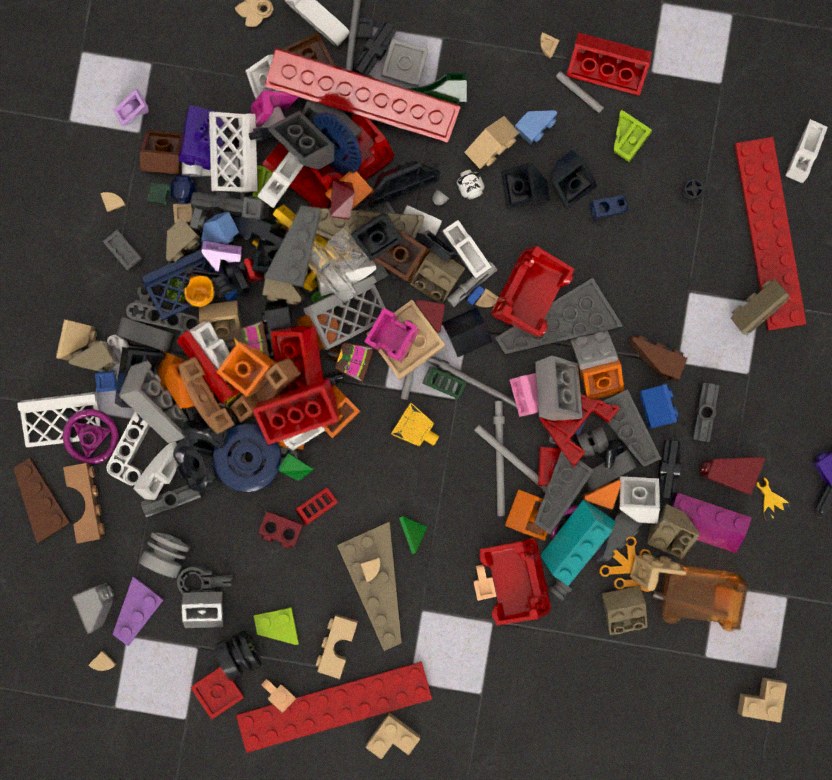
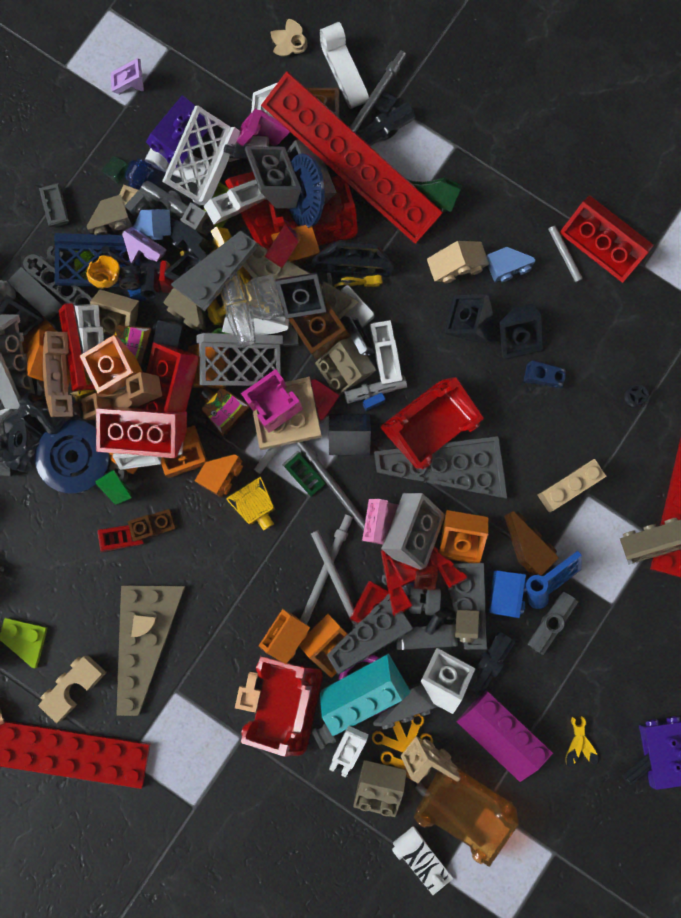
camera: 25 degrees right, 5 degrees down
(112, 201) = (67, 156): tan tile -> none
(161, 152) = (132, 129): reddish brown slope -> none
(282, 524) = (76, 539): dark red brick -> none
(338, 483) = (151, 525): none -> reddish brown slope
(374, 417) = (218, 474): none -> orange slope
(392, 732) = (85, 805): tan brick -> none
(405, 62) = (408, 151): light grey plate -> none
(413, 531) = (202, 608): green slope -> none
(421, 194) = (368, 281): none -> yellow piece
(439, 198) = (382, 292): light grey hinge -> none
(470, 184) = (418, 293): white head -> none
(487, 299) = (383, 411): tan tile -> none
(493, 524) = (284, 636): none -> orange slope
(548, 44) = (555, 196): tan tile -> none
(586, 423) = (426, 578): none -> clear red slope
(586, 590) = (348, 749): none -> white hinge
(594, 350) = (467, 508): light grey plate -> none
(604, 495) = (411, 659): orange slope -> none
(630, 136) = (596, 316): lime wing -> none
(637, 446) = (467, 625): none -> dark tan slope
(672, 291) = (571, 485): none -> tan arch
(673, 532) = (465, 730): dark tan slope -> none
(683, 388) = (540, 587): none -> blue piece
(684, 650) = (421, 860): none -> white door
(733, 473) = (554, 698): dark red slope -> none

